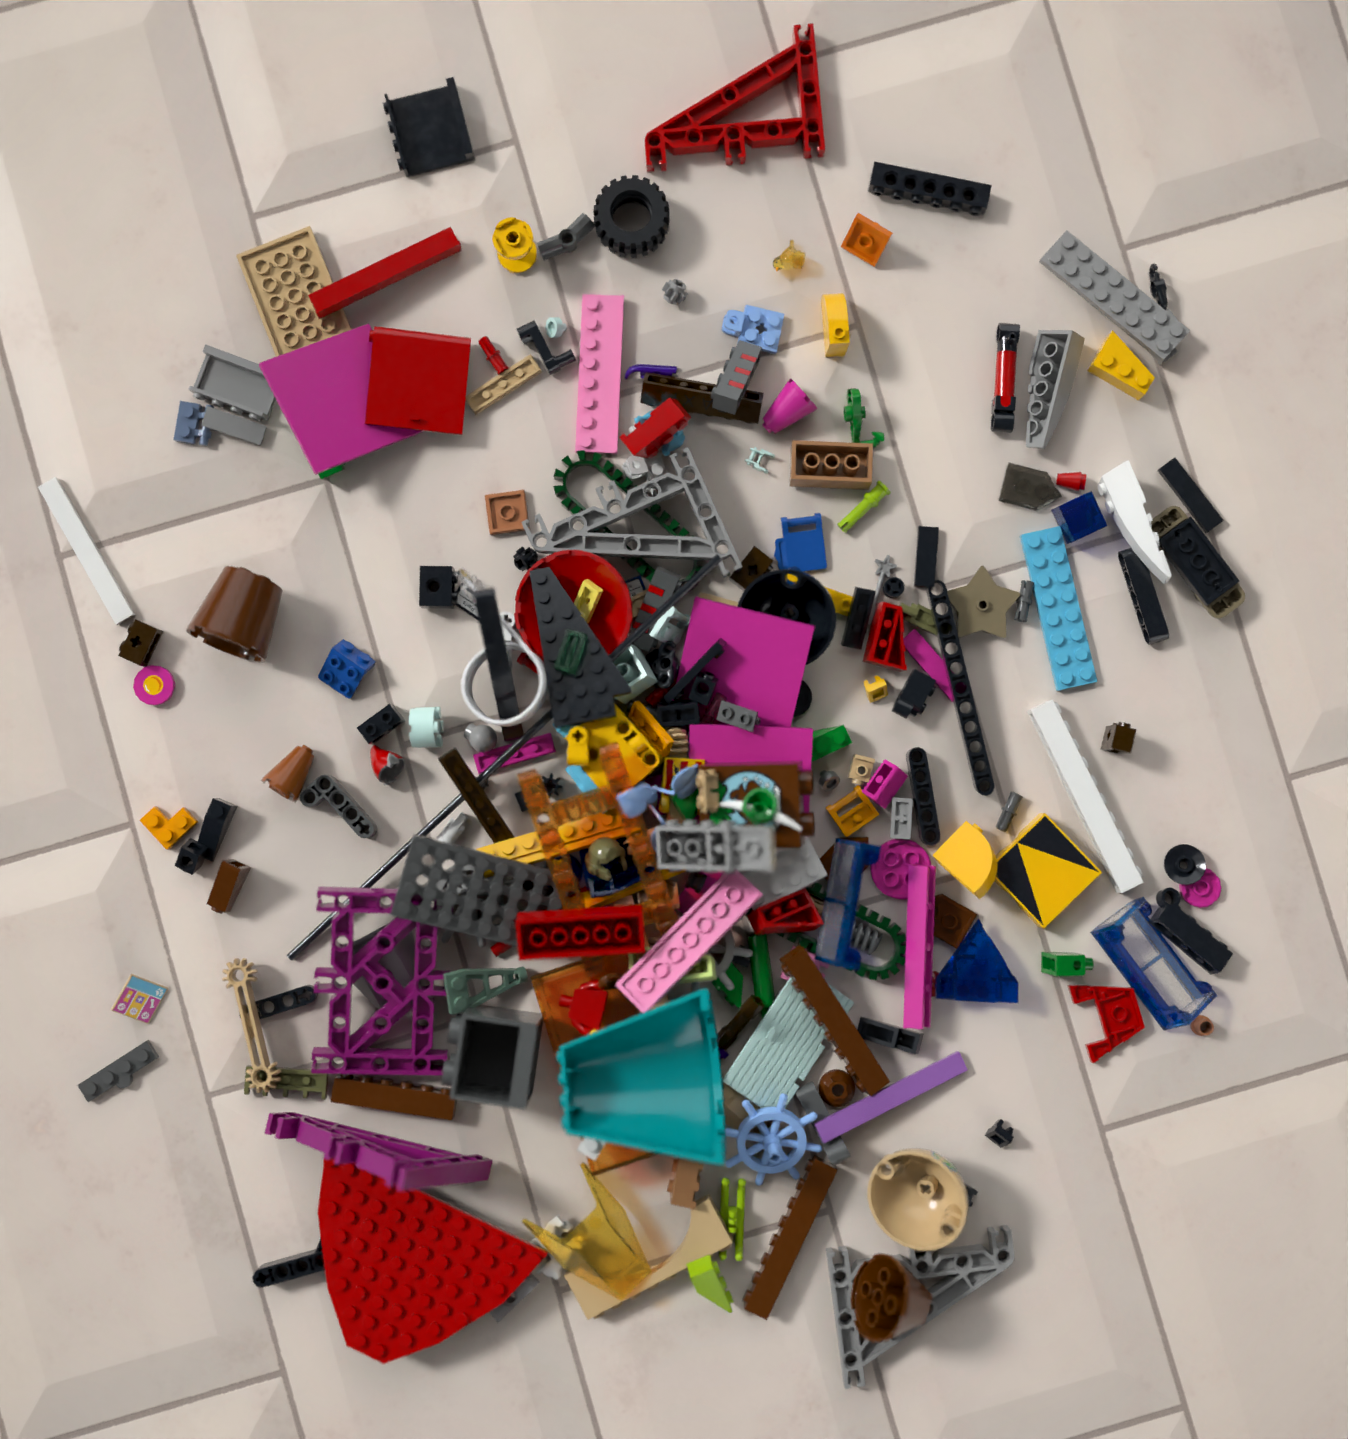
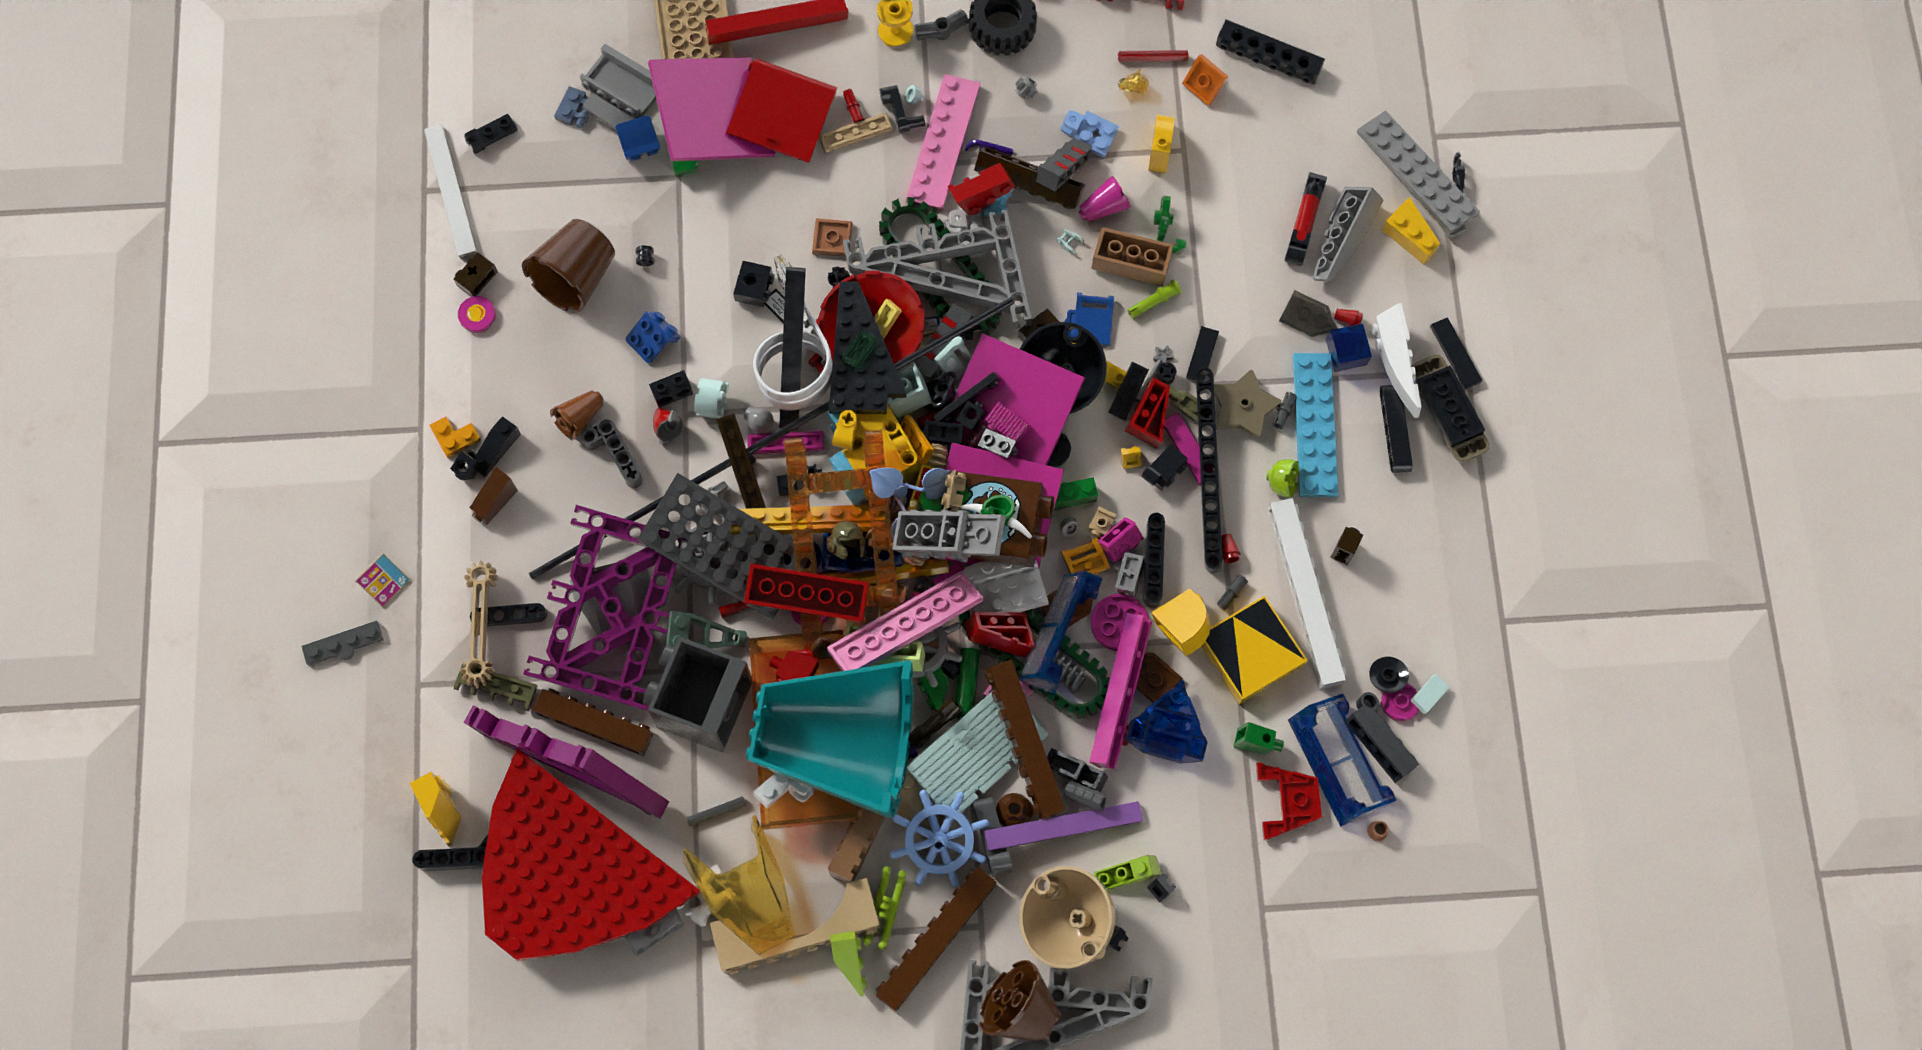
camera: 10 degrees right, 15 degrees down
(111, 474) = (490, 133): none -> black plate
(262, 1224) = (437, 805): none -> yellow wedge
(271, 447) = (638, 138): none -> blue bracket
(314, 580) = (644, 255): none -> black wheel
(541, 1157) = (716, 811): none -> dark grey piece
(742, 690) = (1007, 422): none -> dark pink brick
(803, 220) = (1154, 55): none -> red axle
(906, 1061) = (1085, 796): none -> dark grey axle
(964, 1127) = (1129, 872): none -> lime slope
(998, 766) = (1229, 549): none -> red cone
(1038, 677) = (1283, 477): none -> lime cylinder
(1229, 874) = (1429, 693): none -> light aqua tile

